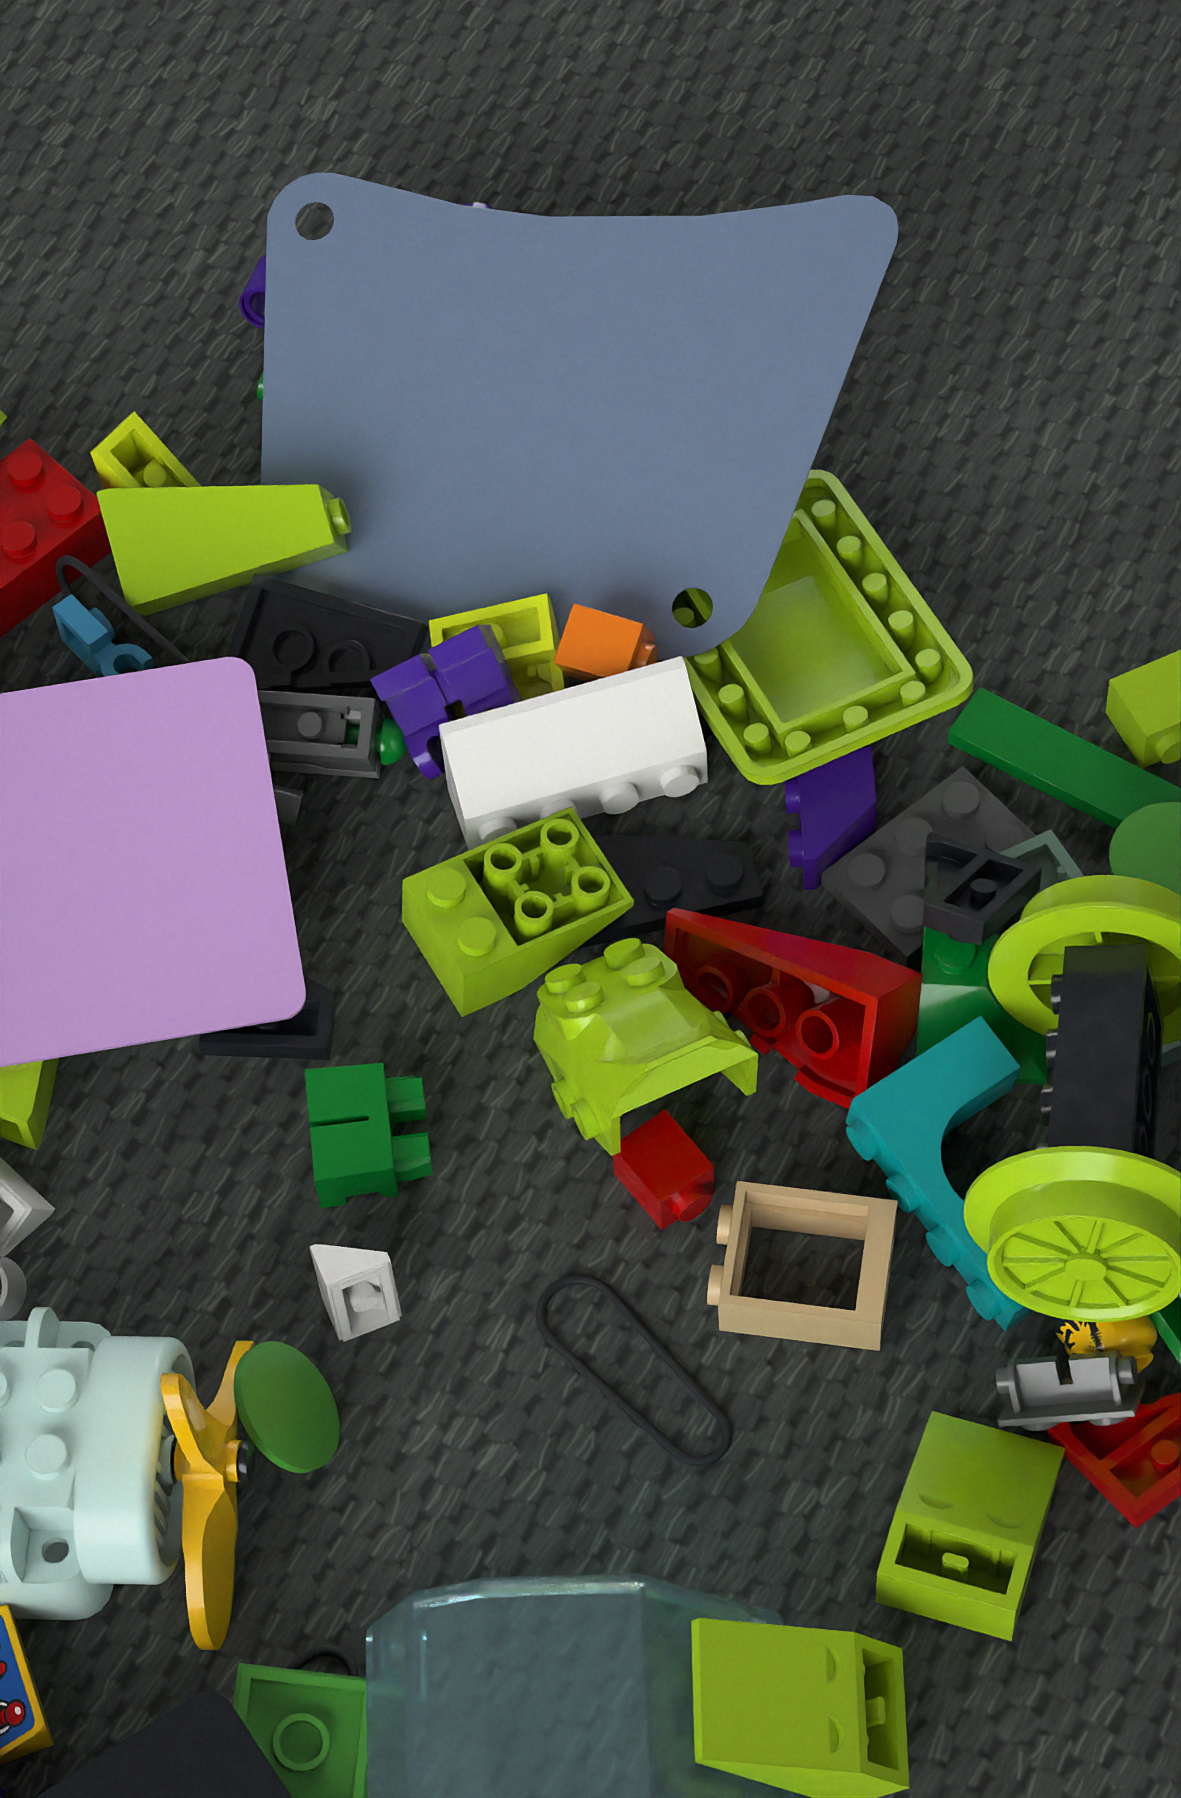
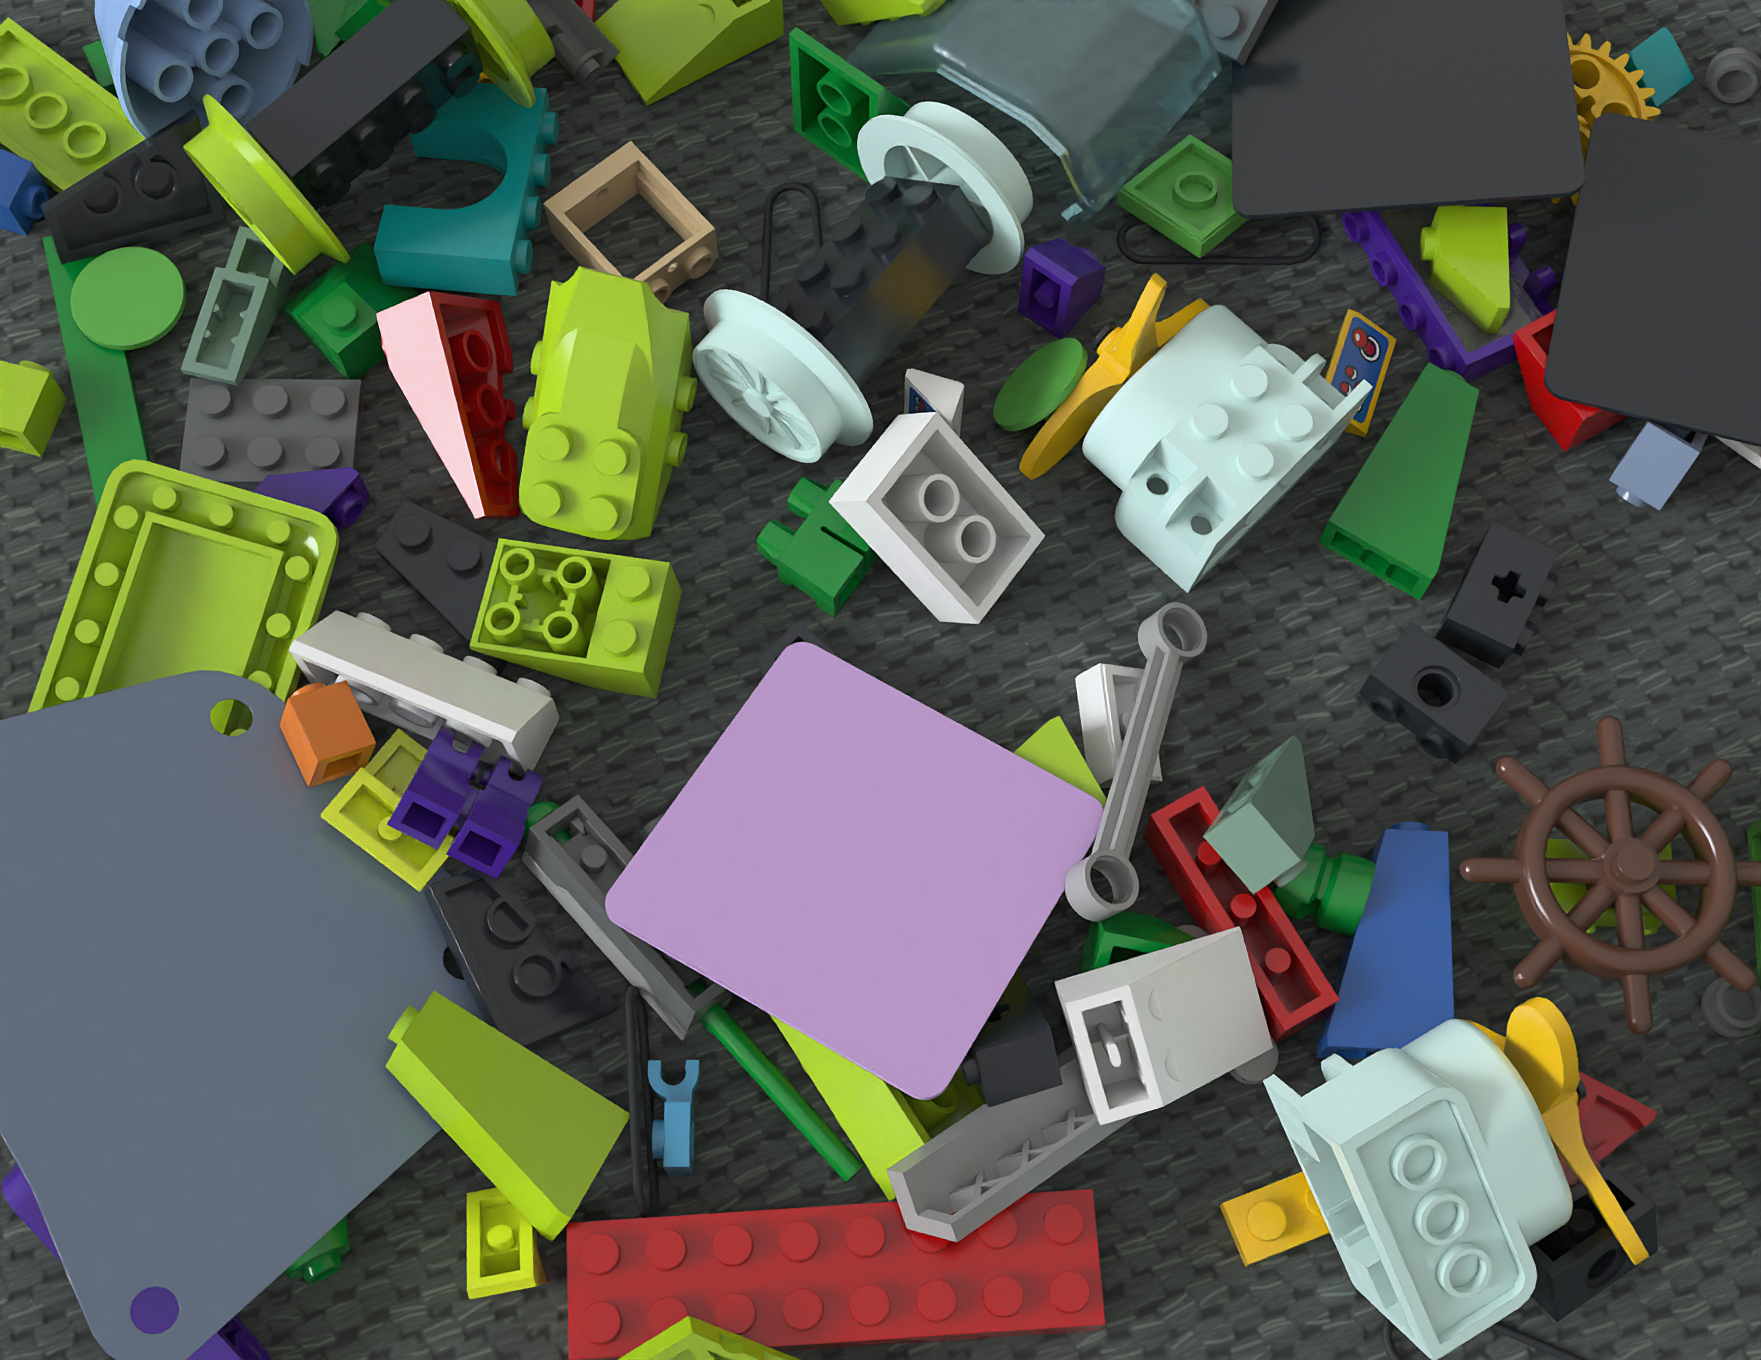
camera: 145 degrees left, 10 degrees up
(262, 1181) = (937, 518): none -> white brick
(349, 1522) = (1059, 285): none -> dark purple slope
(509, 1423) = (936, 204): none -> brick
(704, 1514) = (834, 100): none -> green slope
(972, 889) = (283, 345): black wing -> none

